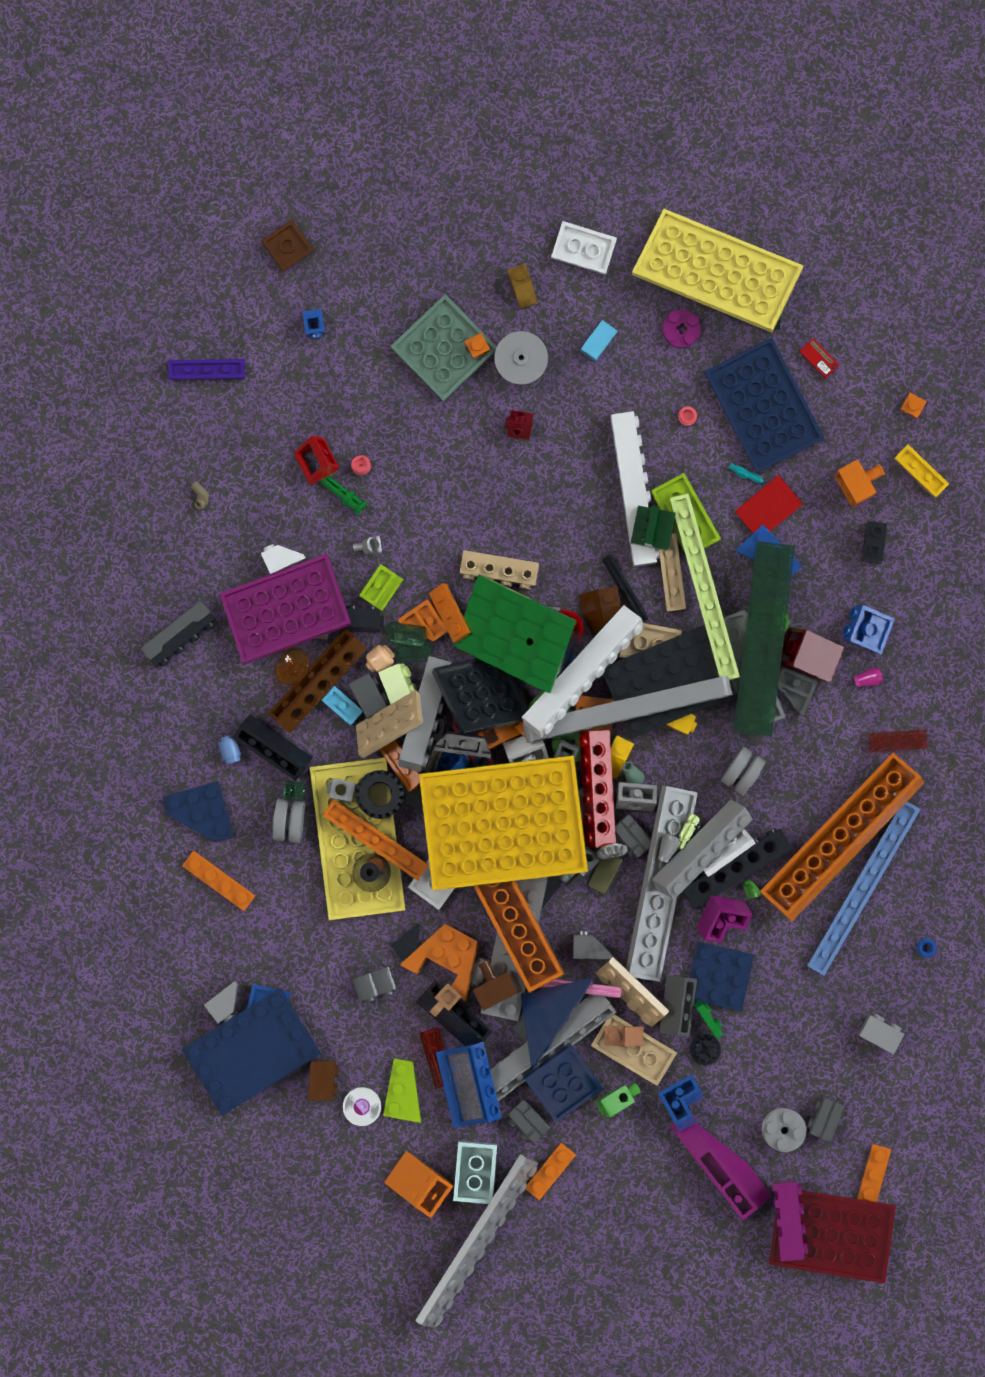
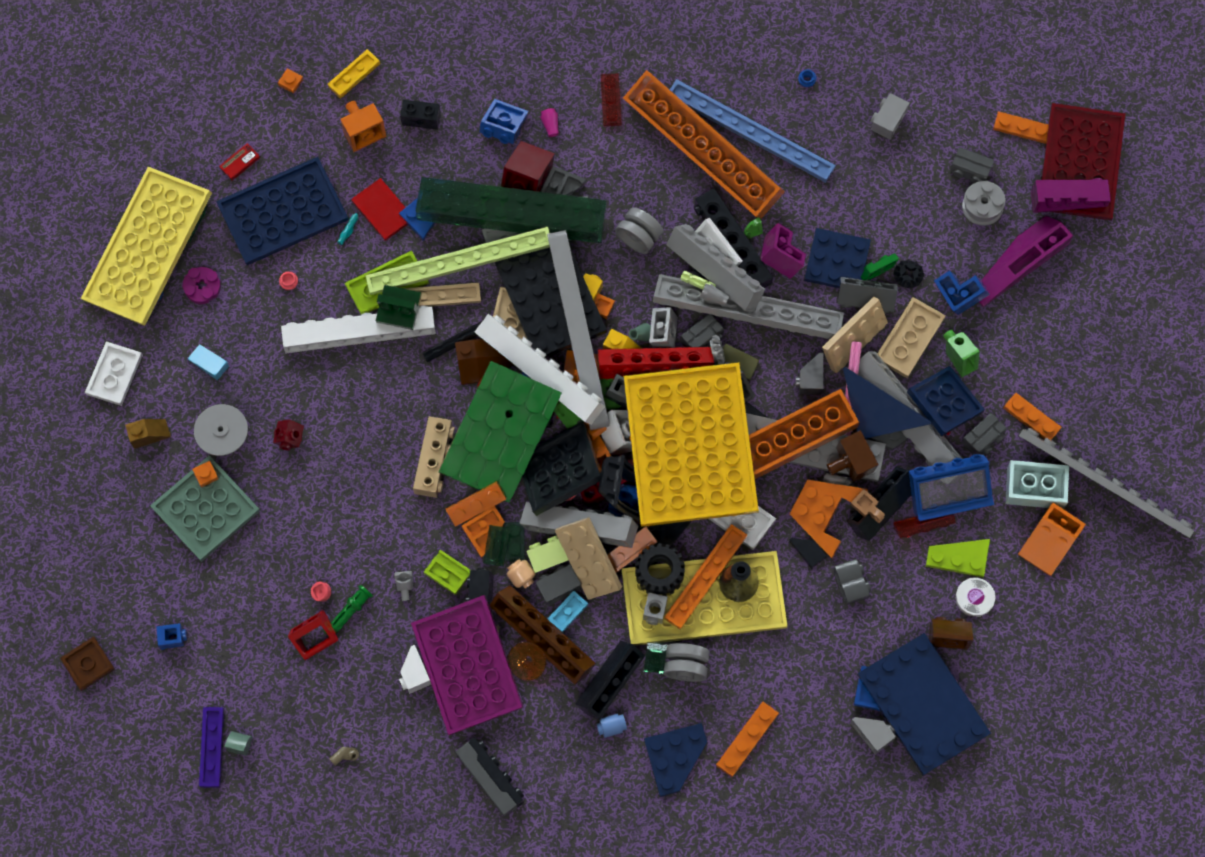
camera: 90 degrees left, 15 degrees down
(211, 394) = (238, 743): none -> sand green brick
(623, 1036) = (898, 344): nougat slope -> none
(663, 735) = (604, 305): none -> orange plate

